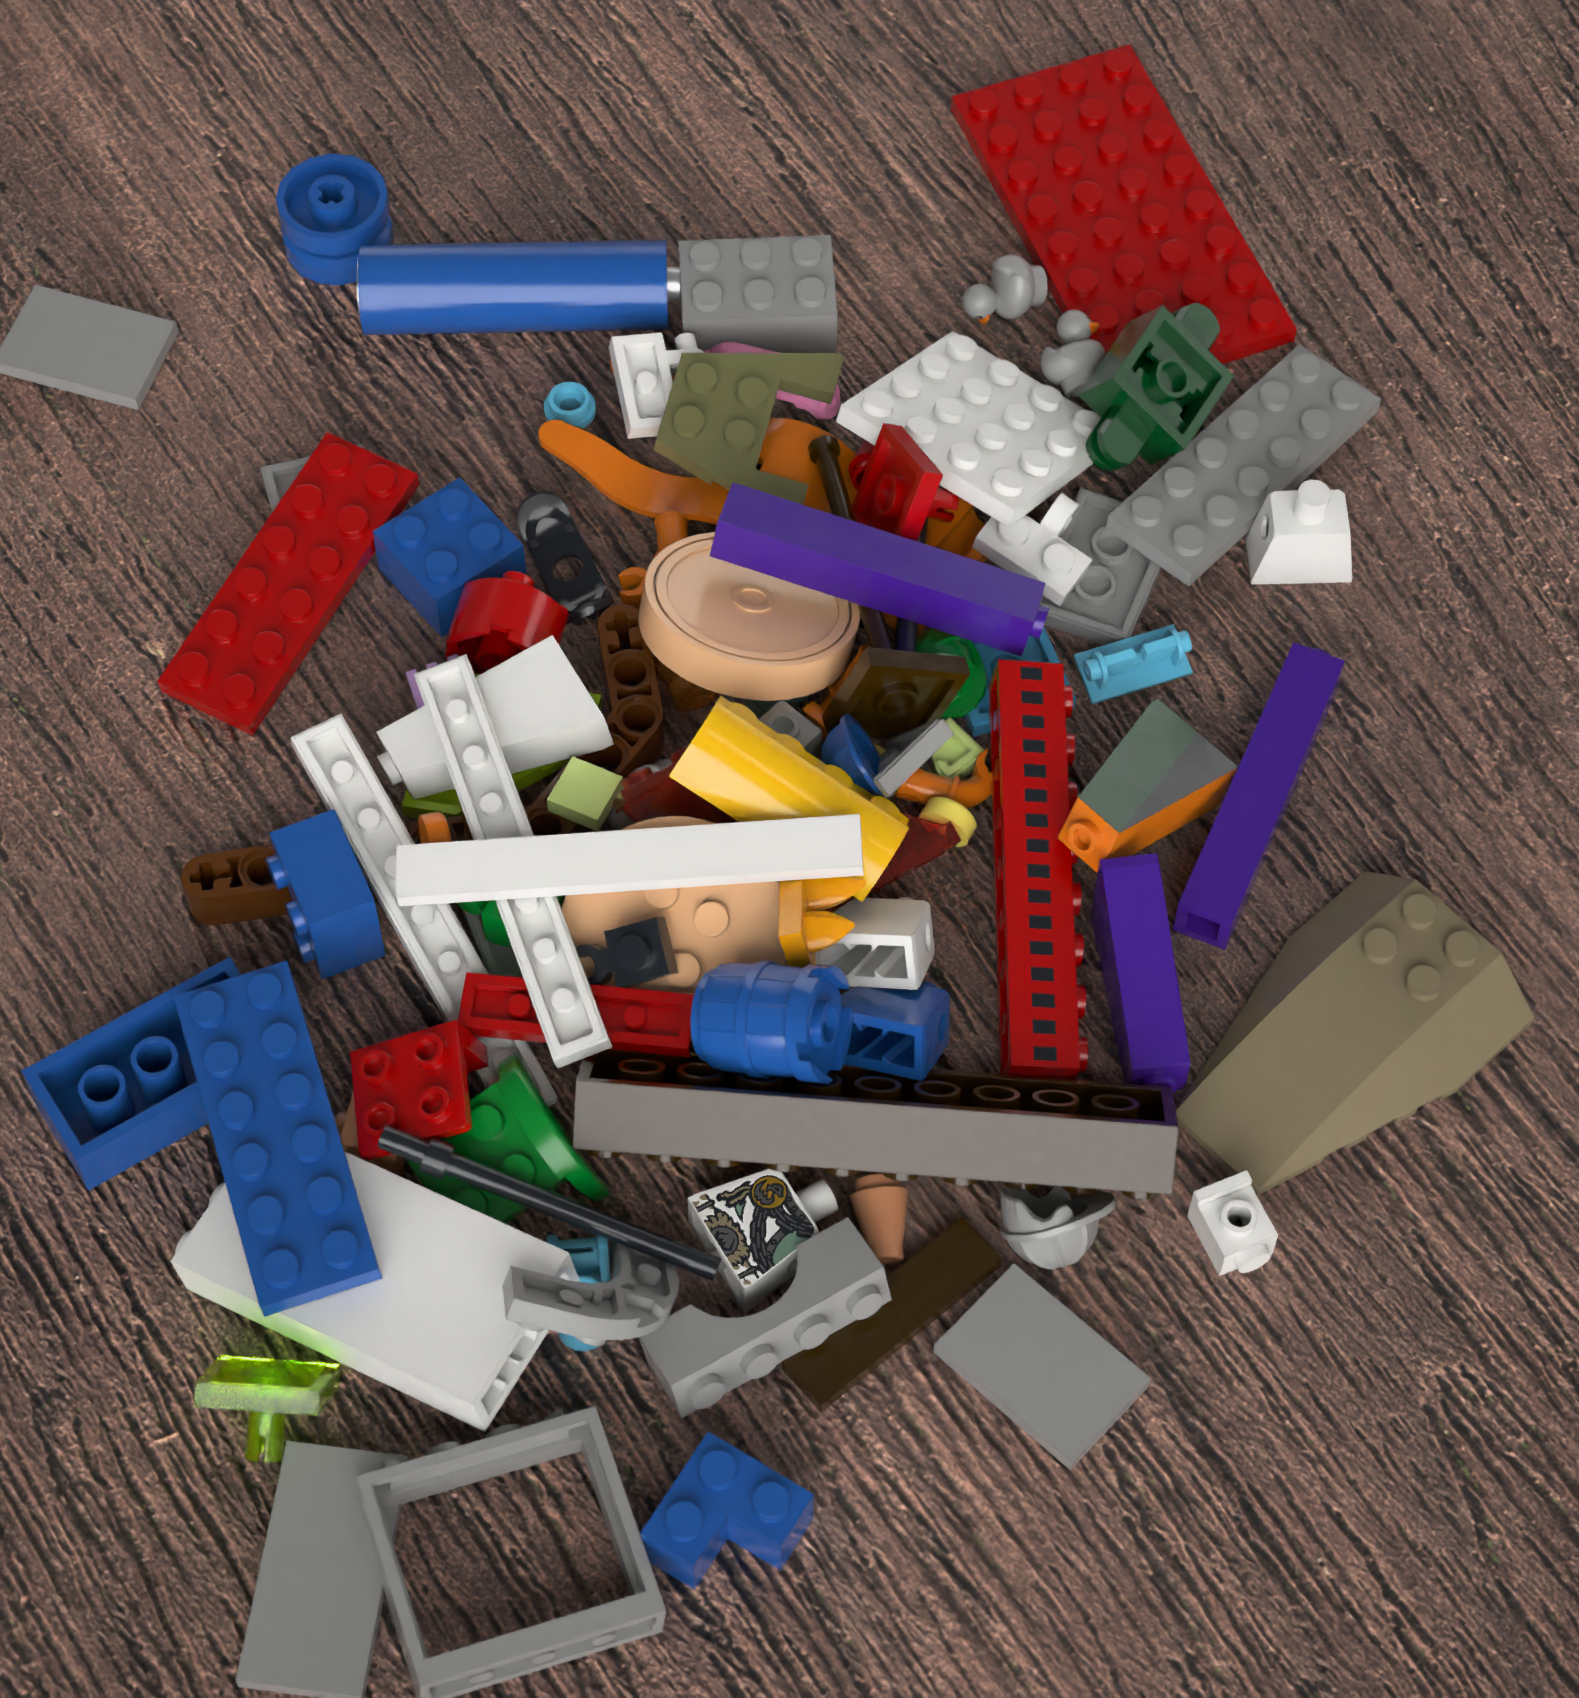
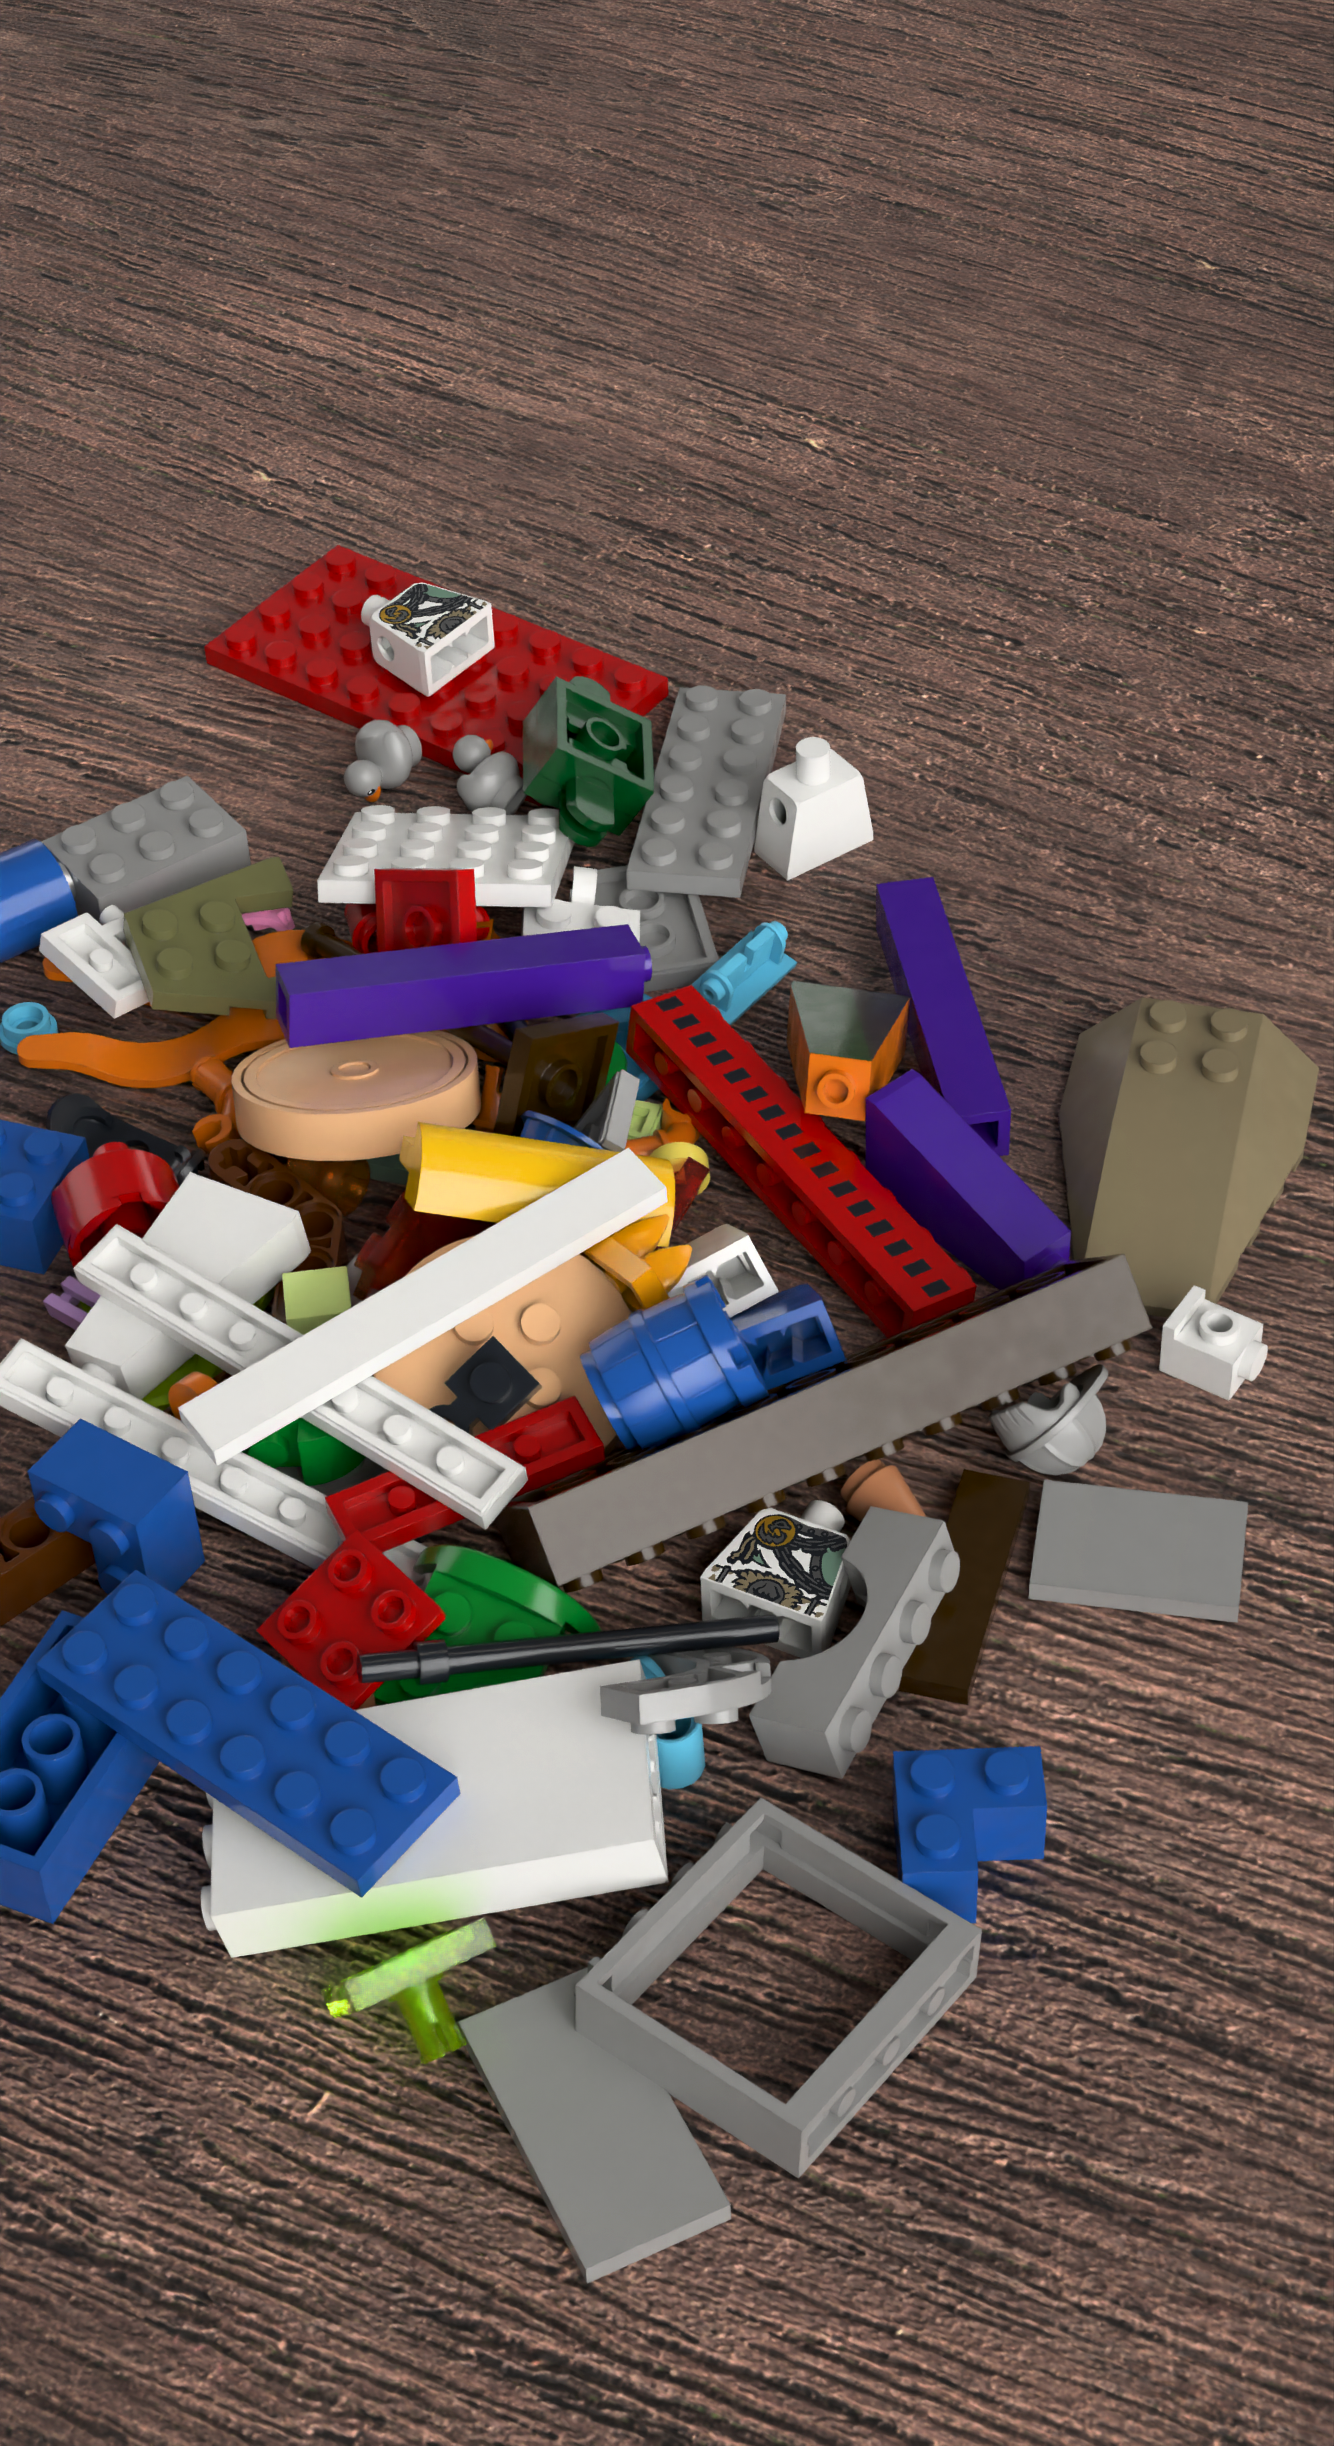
camera: 30 degrees left, 15 degrees down
(1119, 188) = (428, 634): none -> white torso

